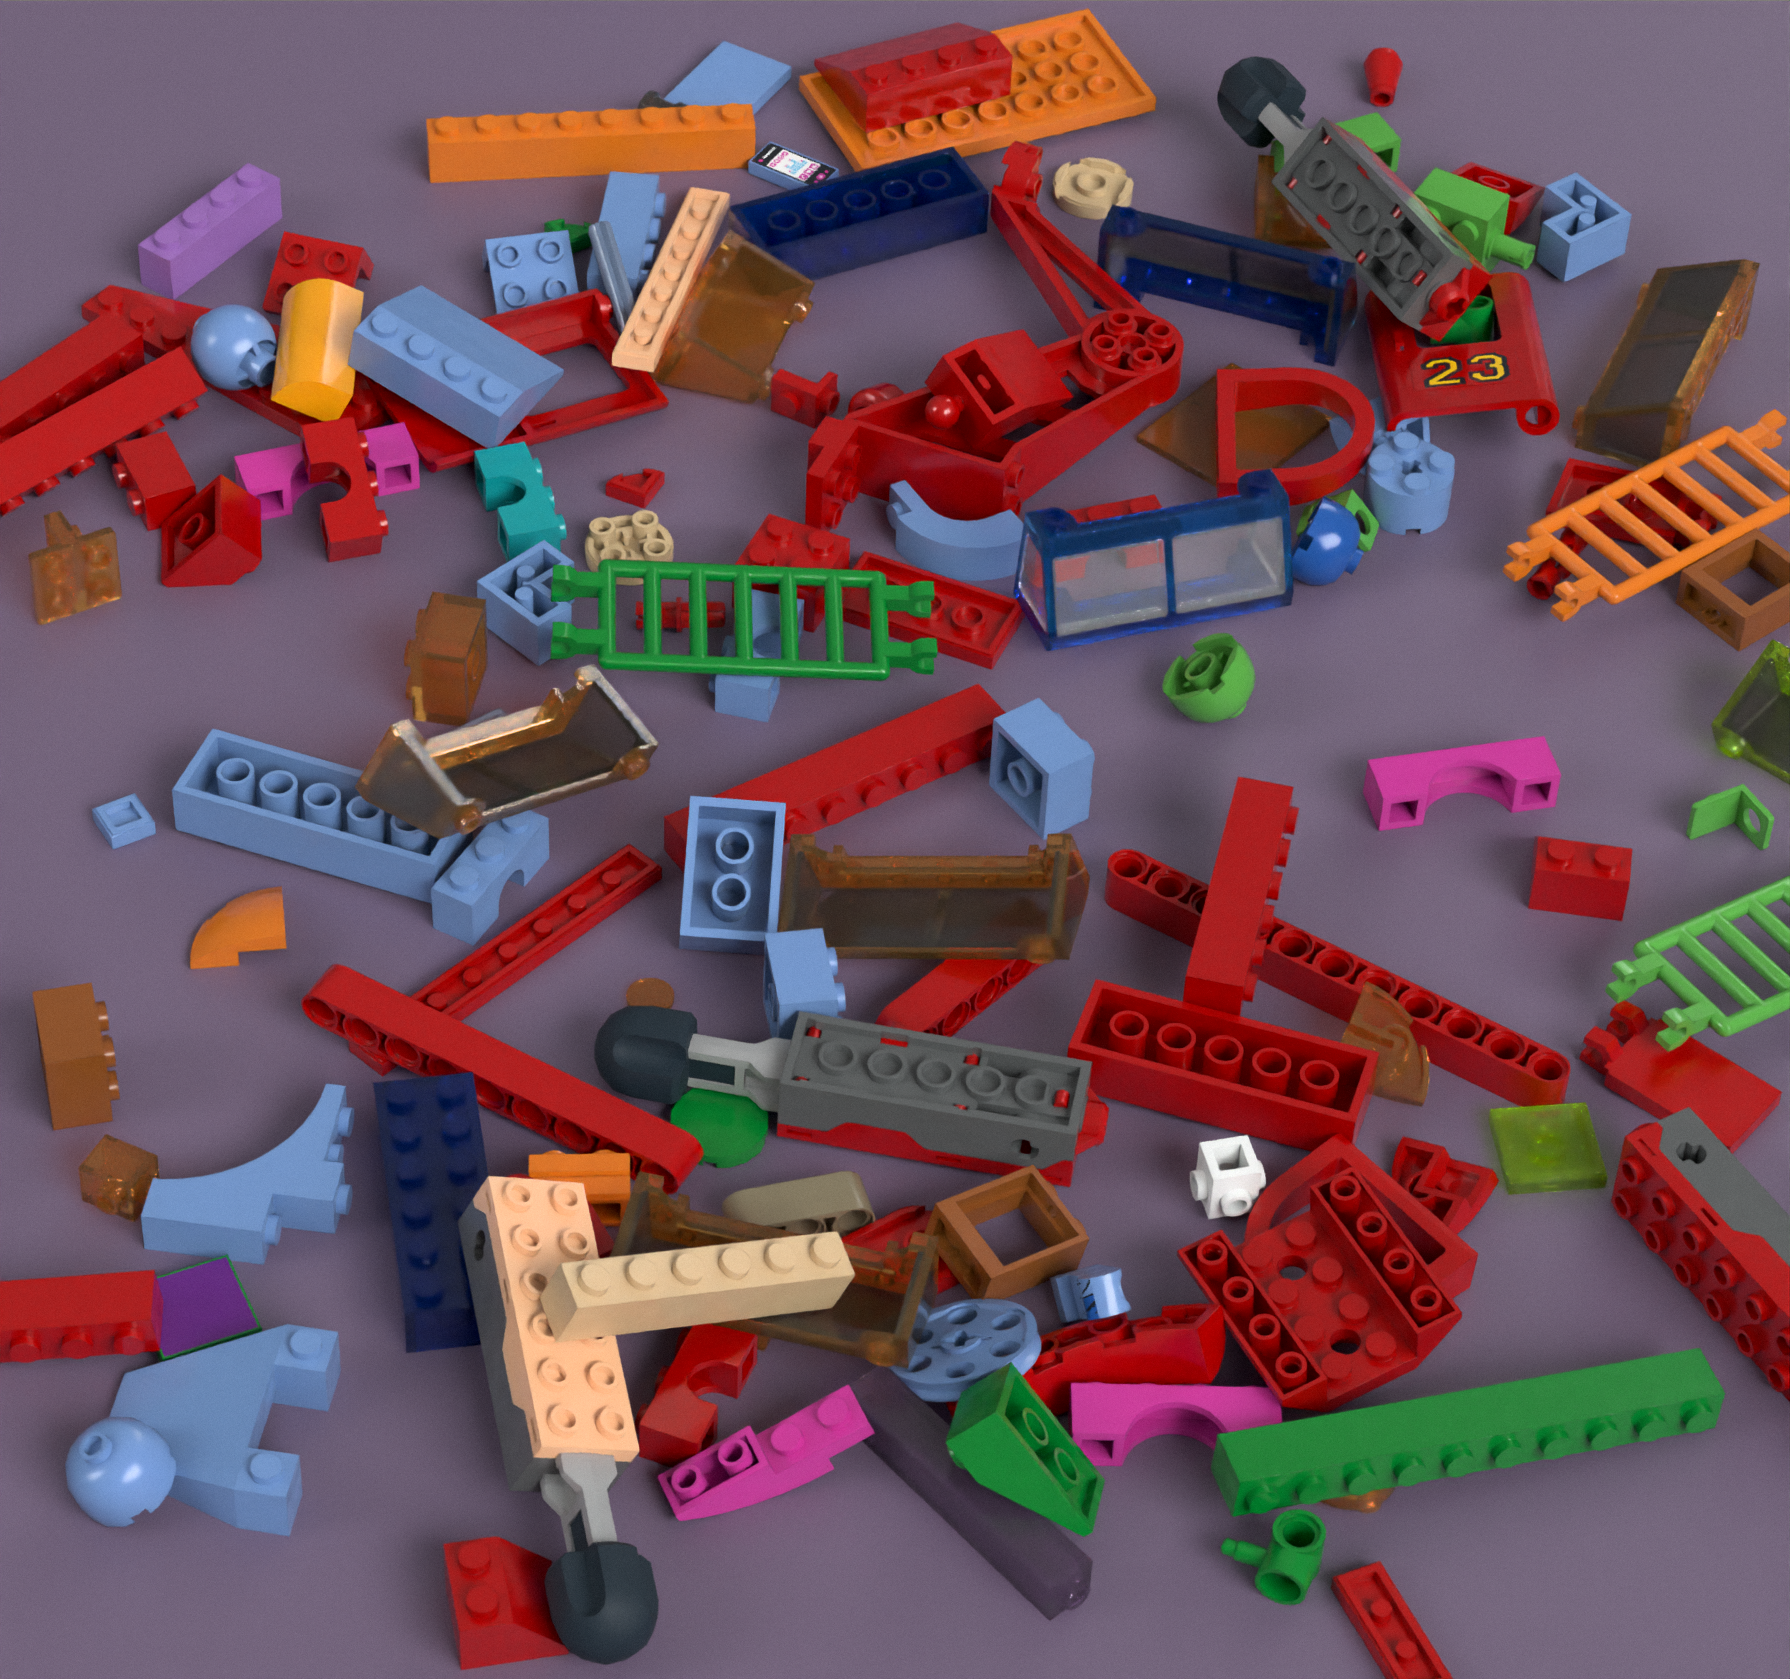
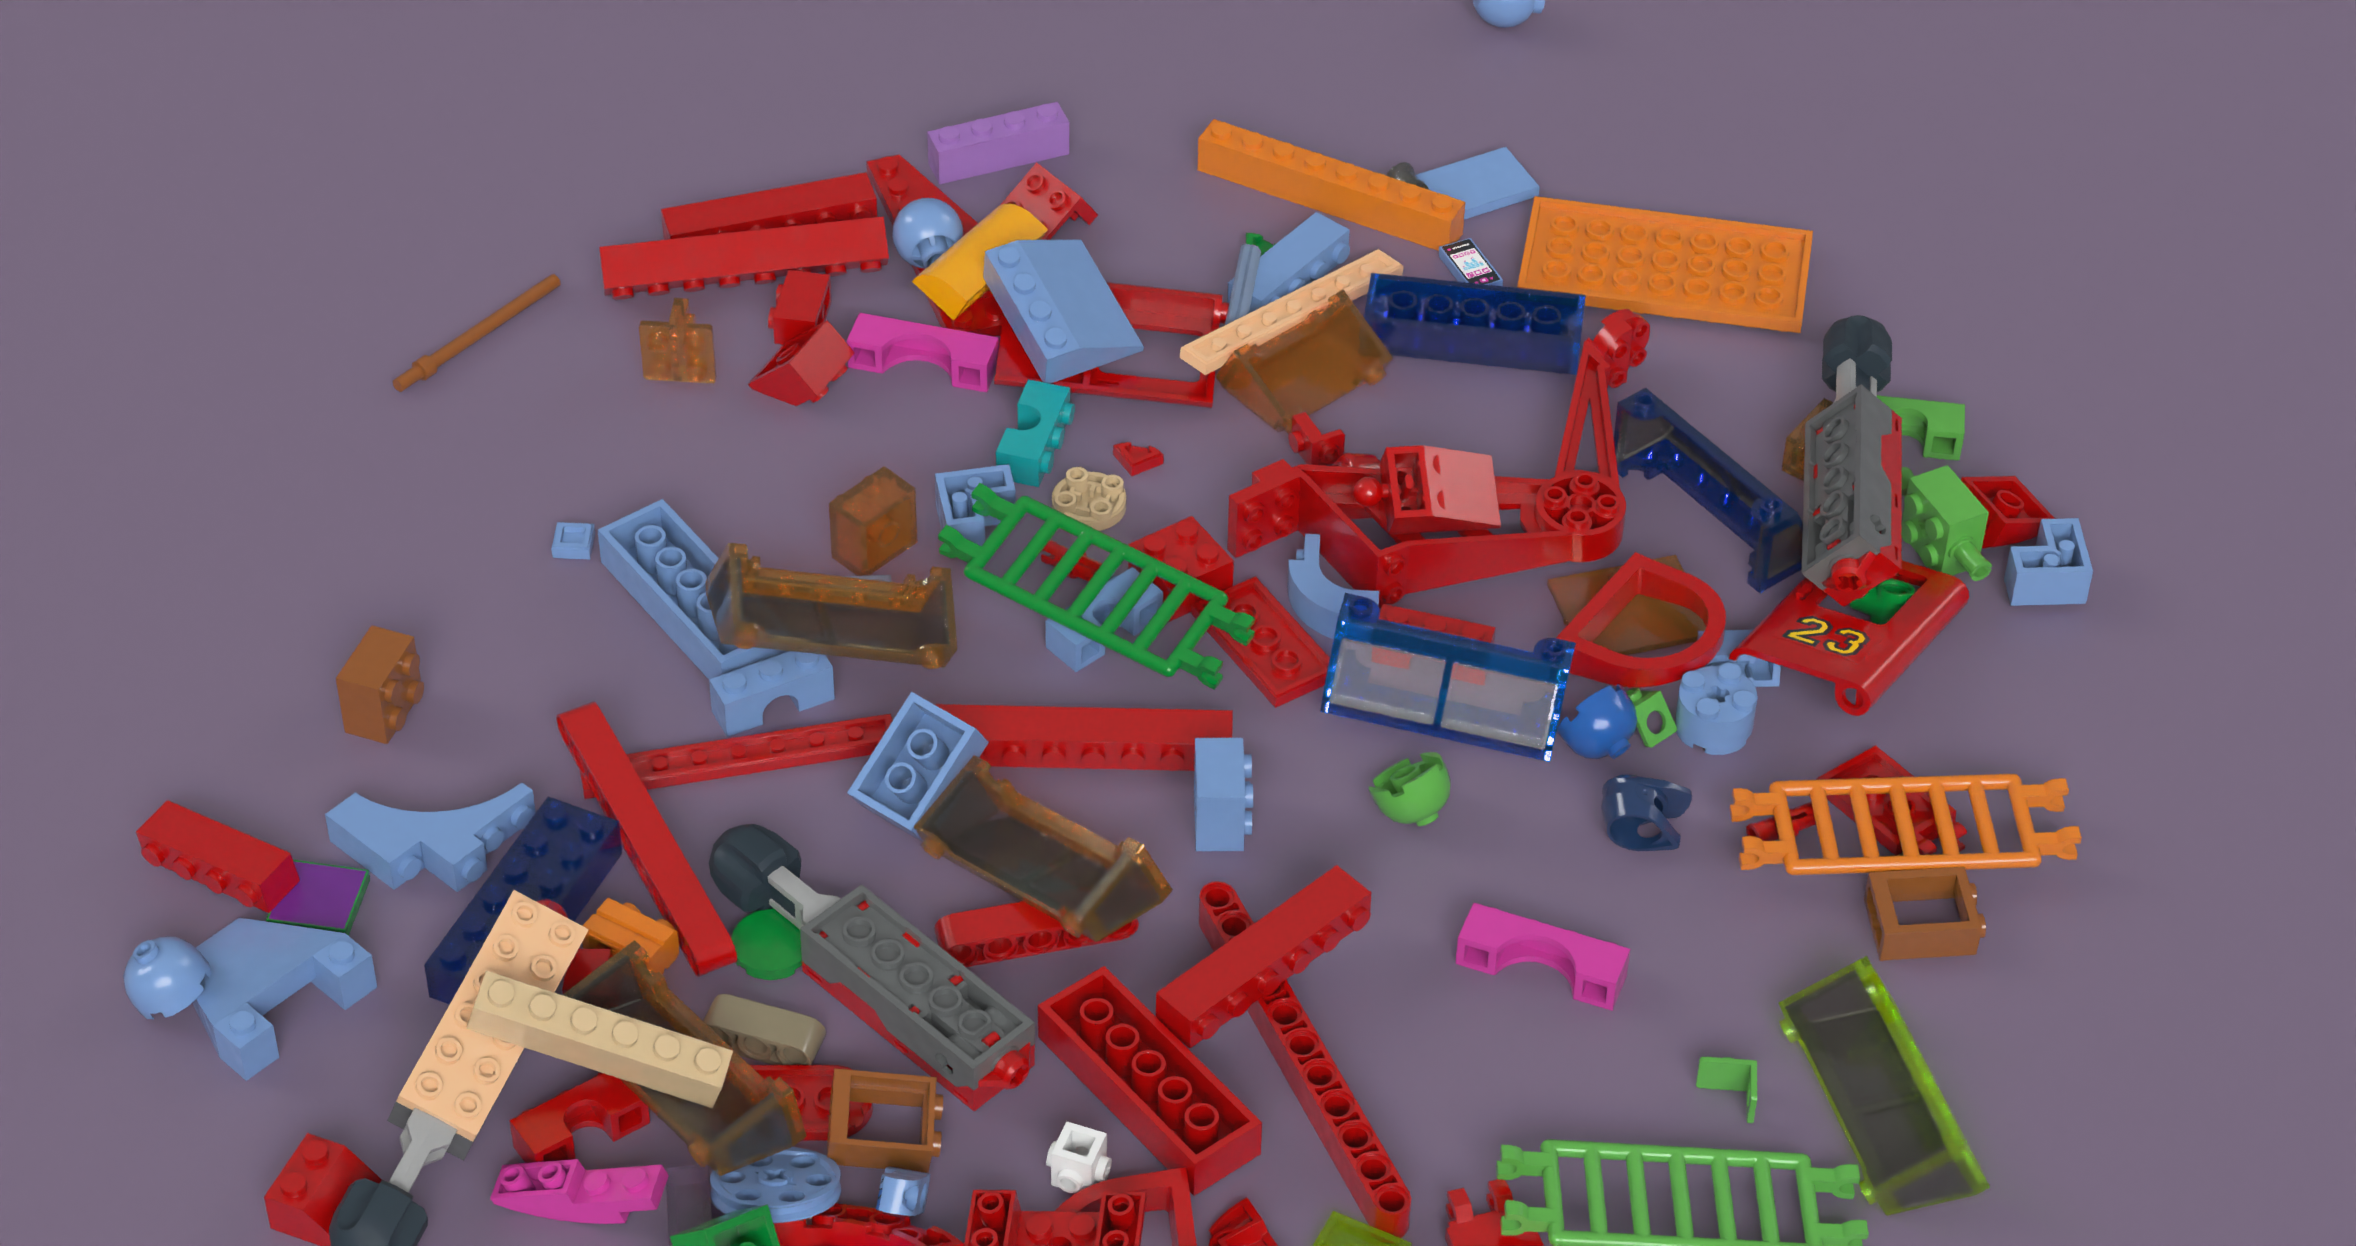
camera: 35 degrees right, 0 degrees up
(118, 1177) = (343, 776): clear orange brick -> none
(243, 925) = (582, 651): orange brick -> none
(336, 454) = (905, 395): red arch -> none
(529, 268) = (1197, 262): medium blue bracket -> none
(650, 993) = (811, 831): clear orange piece -> none
(799, 979) = (896, 867): medium blue brick -> none
(919, 75) = (1619, 230): red slope -> none
(1091, 188) = (1692, 374): tan tile -> none
(1382, 75) = (2012, 377): red cone -> none
(1383, 1027) = (1288, 1123): clear orange brick -> none
(1421, 598) = (1641, 800): none -> dark blue helmet
(1579, 878) = (1570, 1069): red slope -> none
(1666, 360) = (2024, 699): windscreen -> none

